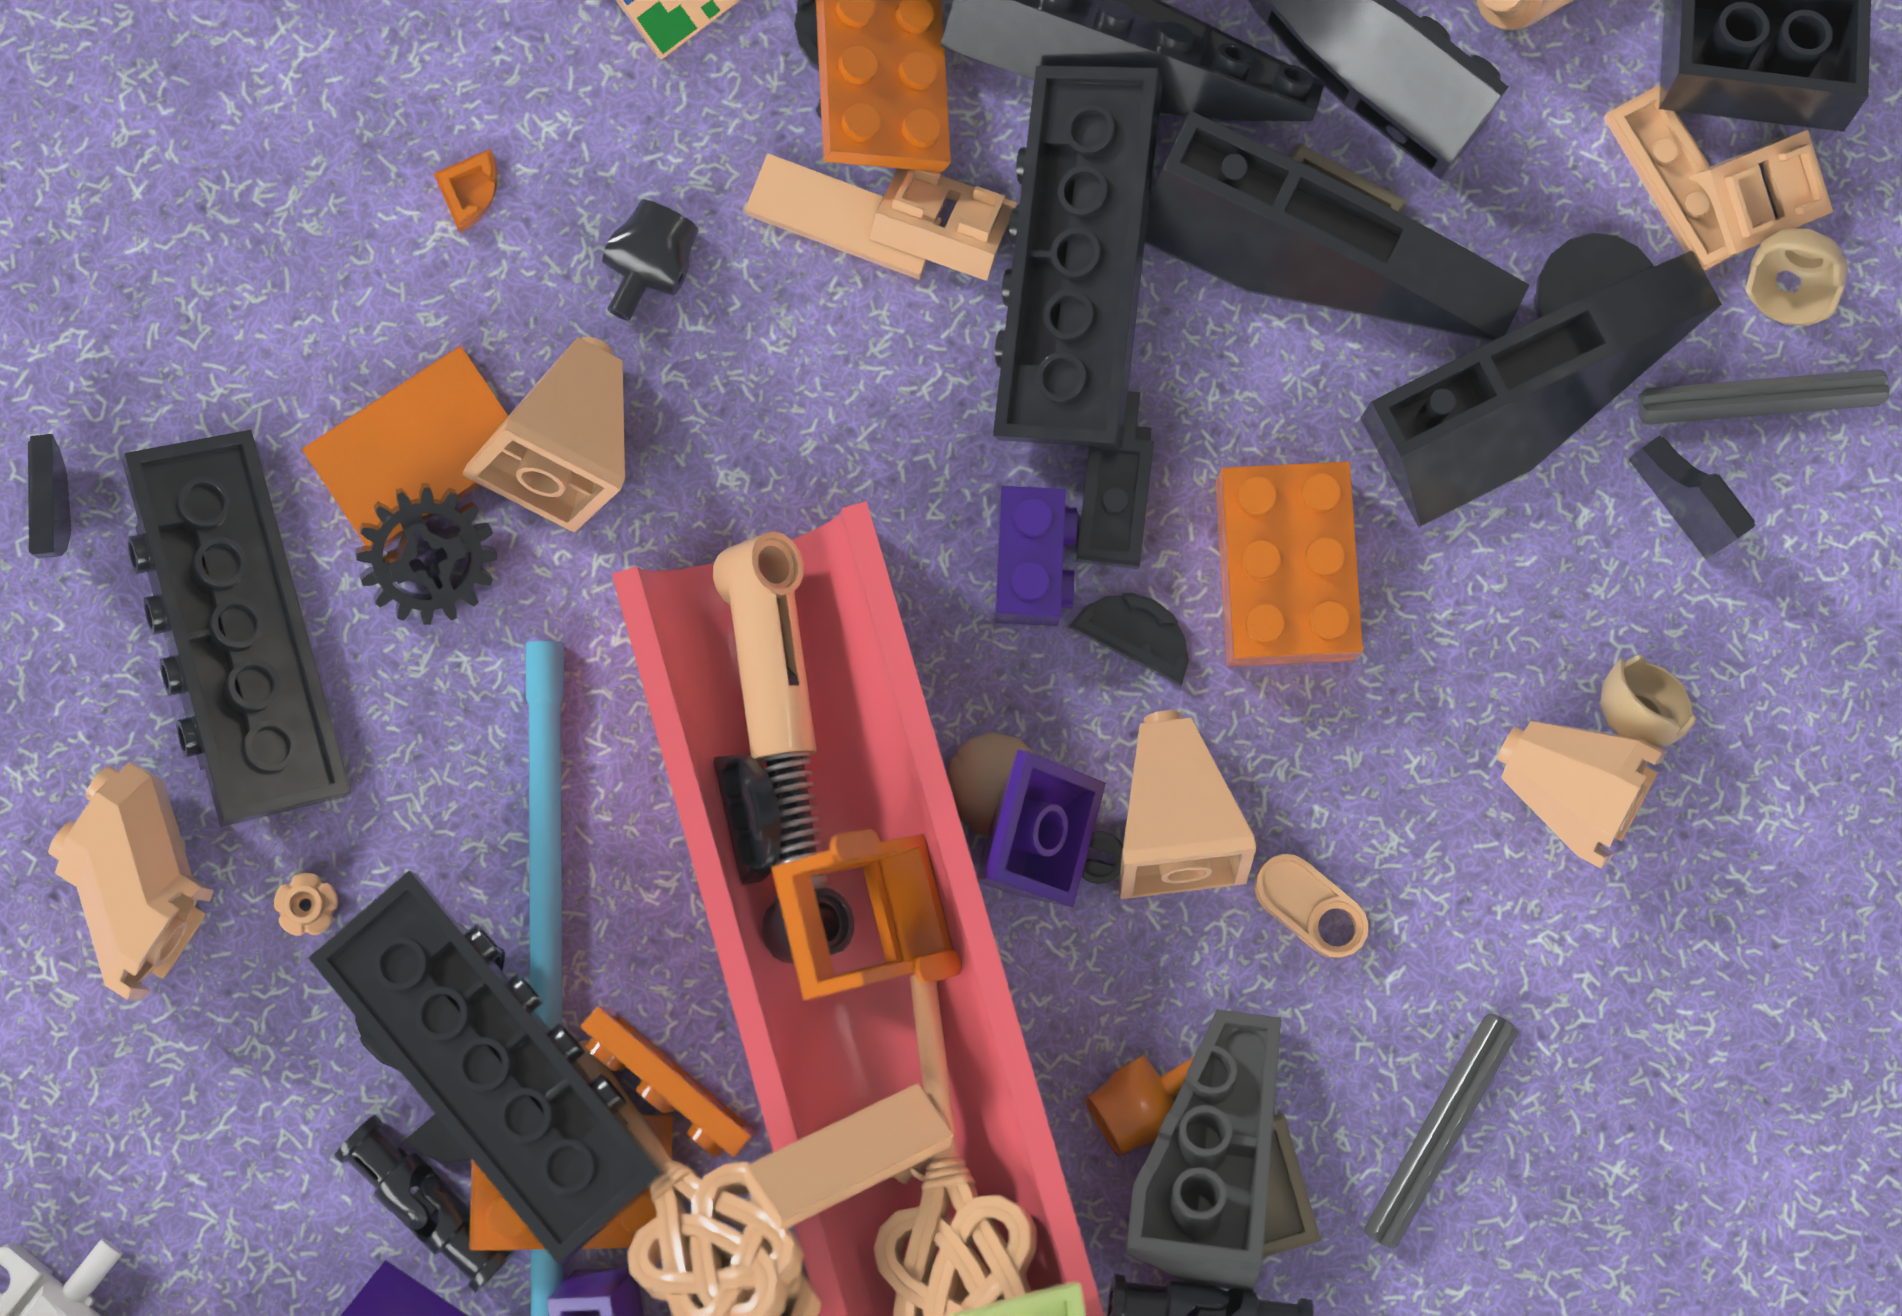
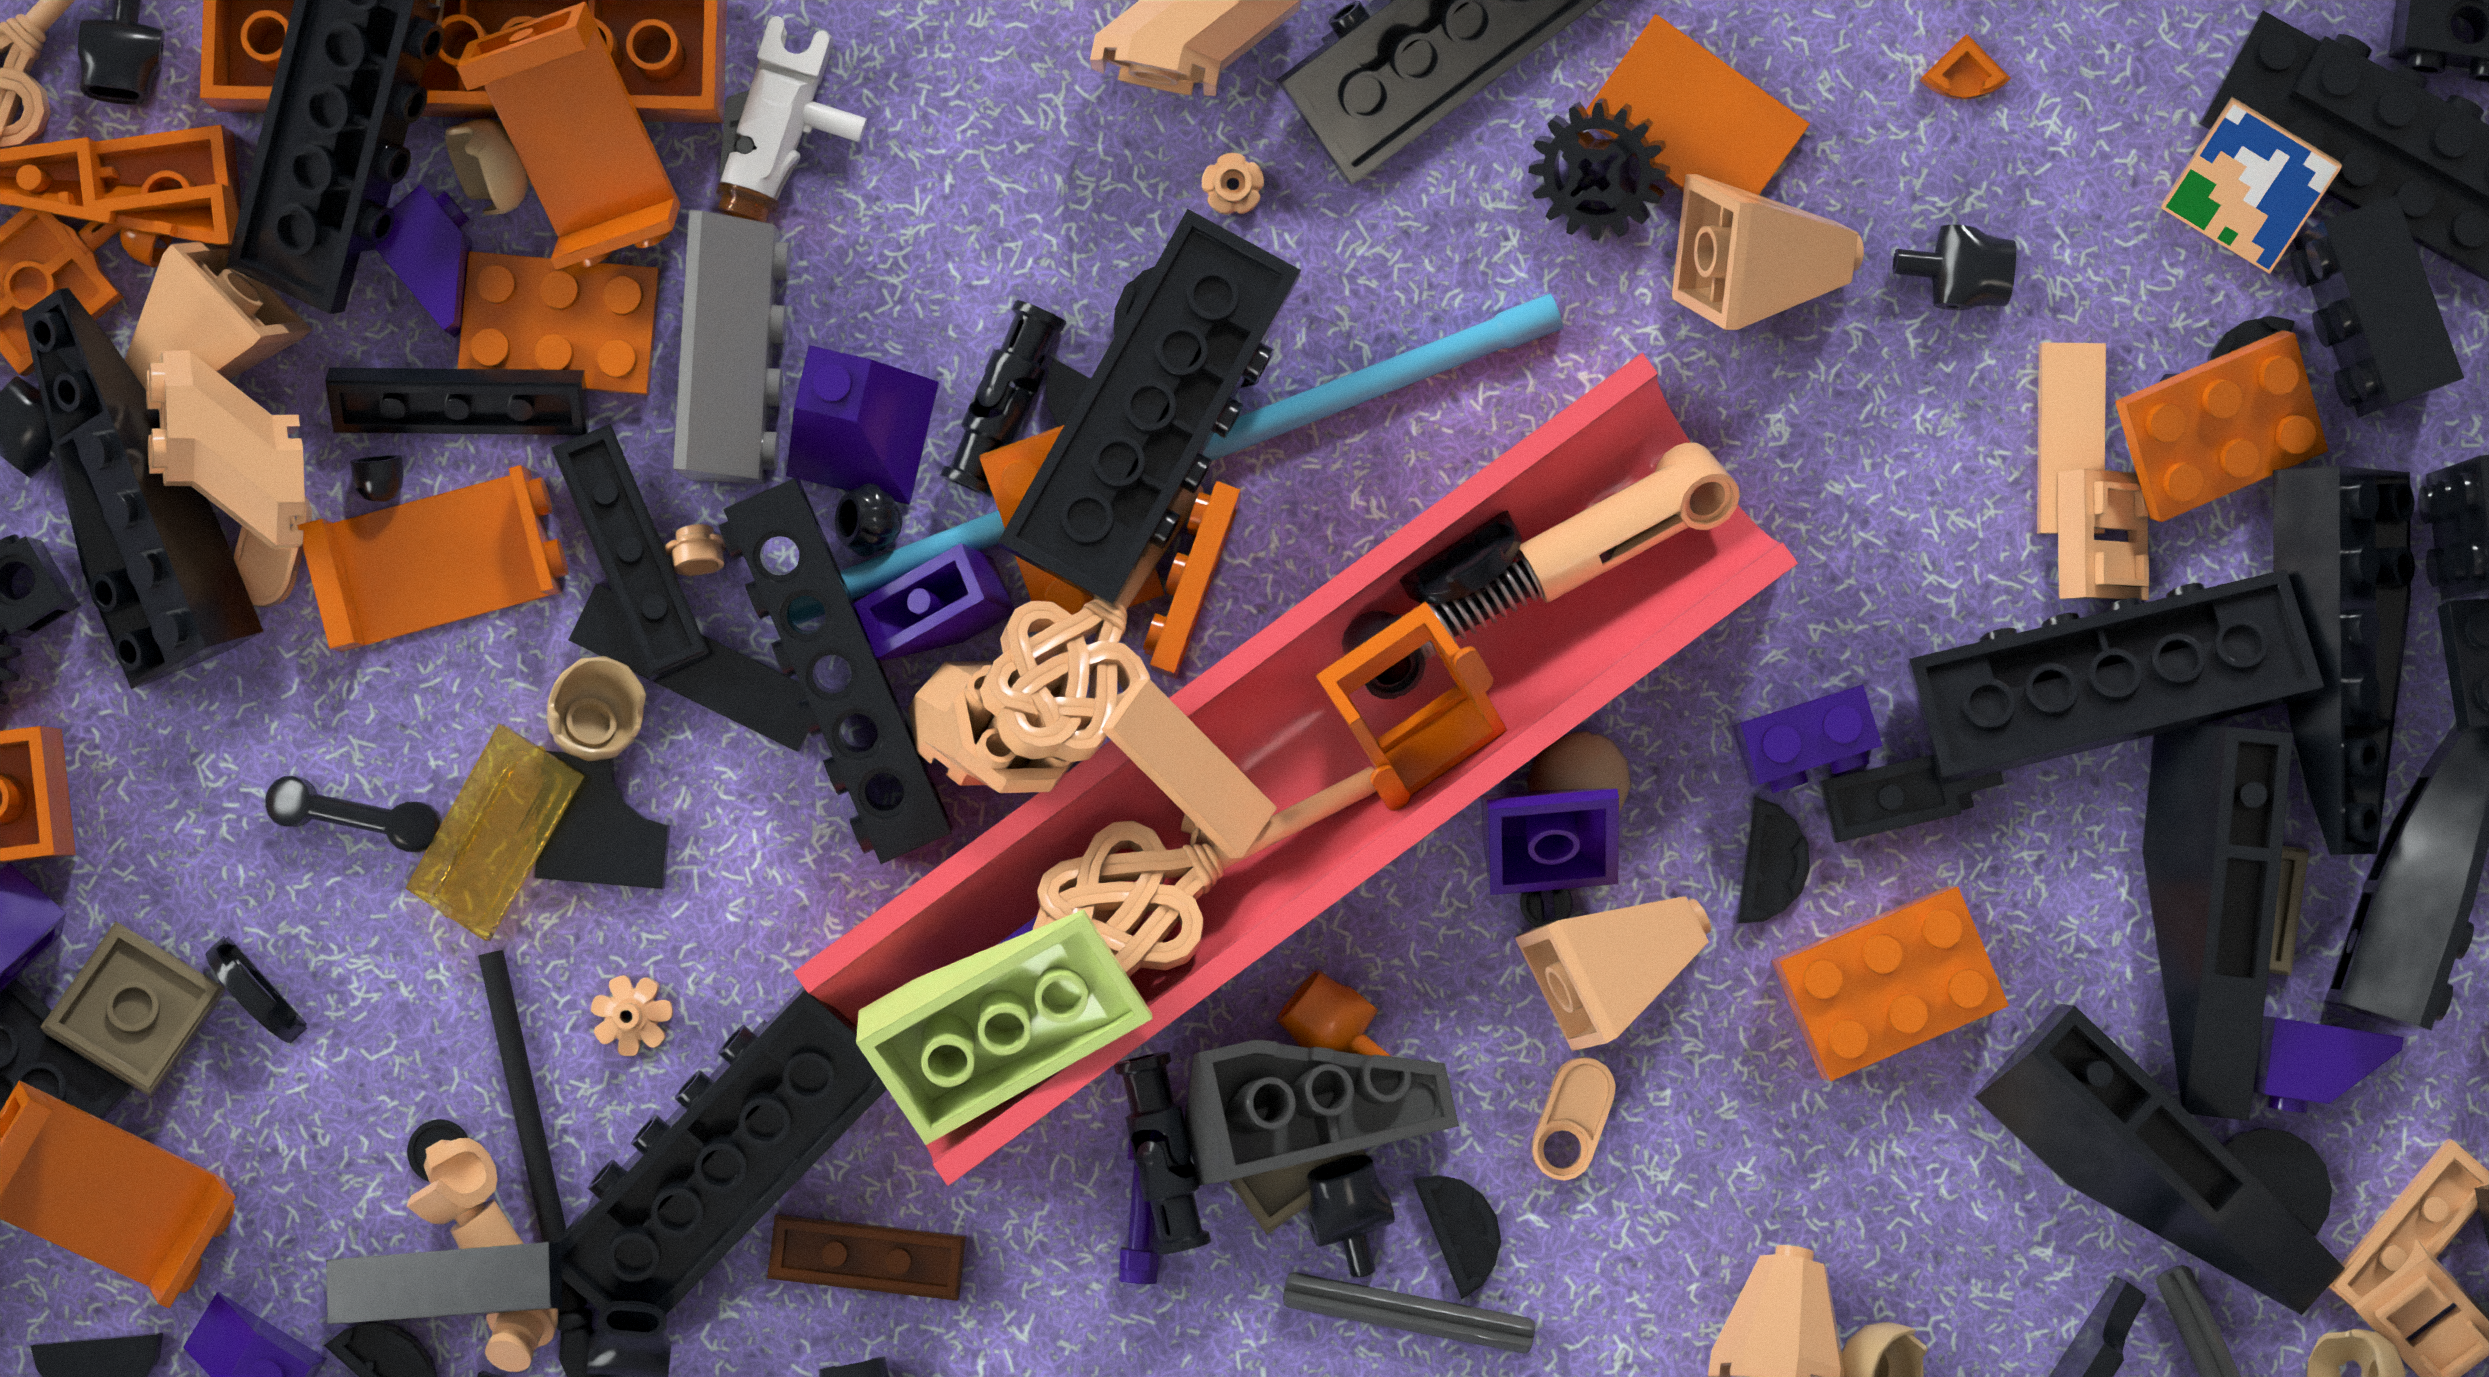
camera: 75 degrees right, 5 degrees up
(1320, 1152) = (1346, 1207): none -> black piece
(1378, 1048) = (1463, 1227): none -> black tile
(1496, 203) = (2315, 1061): none -> dark purple slope

